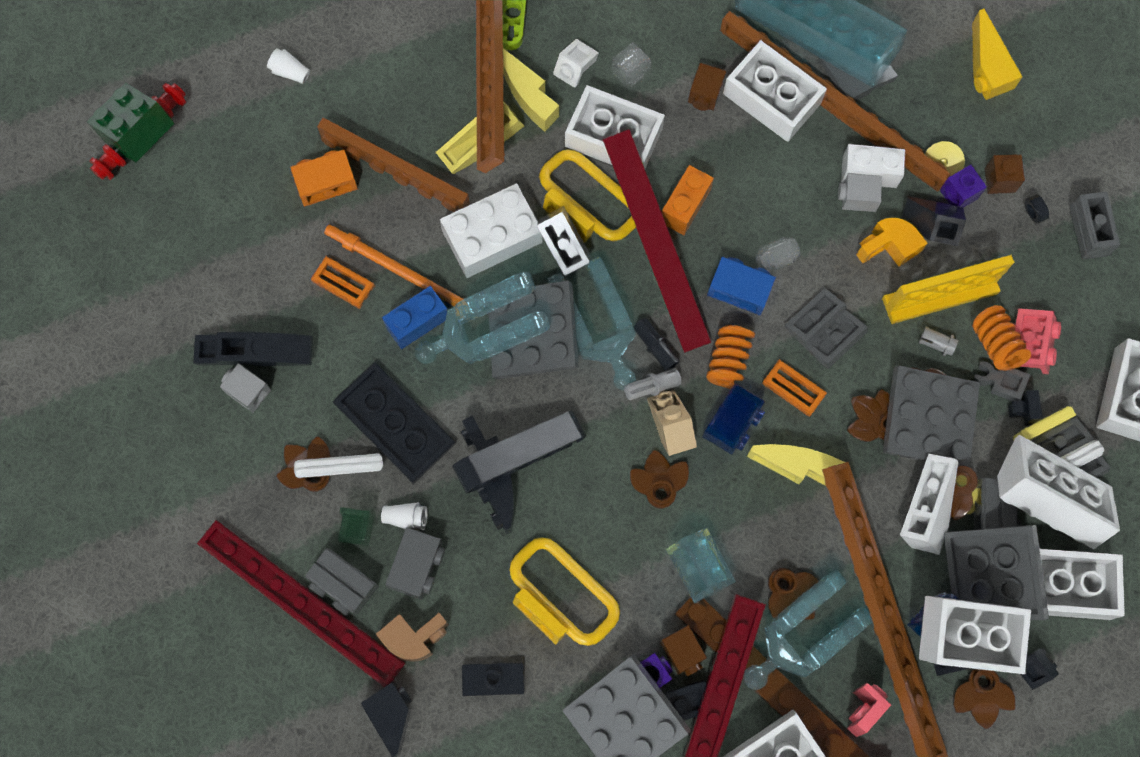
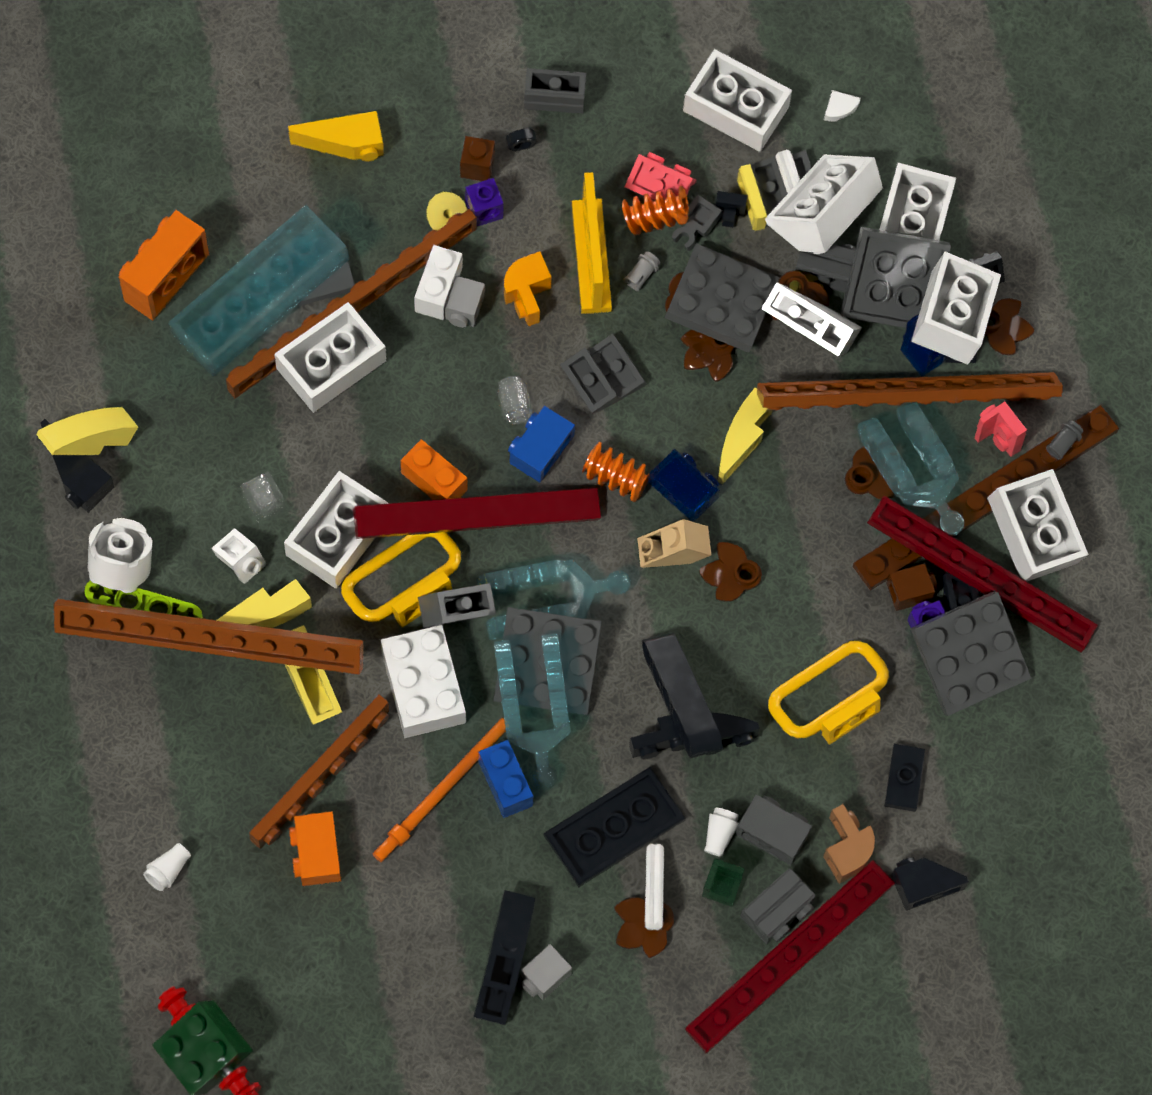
camera: 80 degrees left, 5 degrees down
(362, 294) = (425, 872): orange tile -> none
(653, 384) = (630, 554): light grey axle -> none
(656, 344) = (586, 543): black axle -> none
(700, 565) = (830, 549): clear light blue brick -> none
(706, 87) = (306, 426): reddish brown brick -> none
(789, 397) = (642, 438): orange tile -> none
(935, 220) = (514, 238): black slope -> none

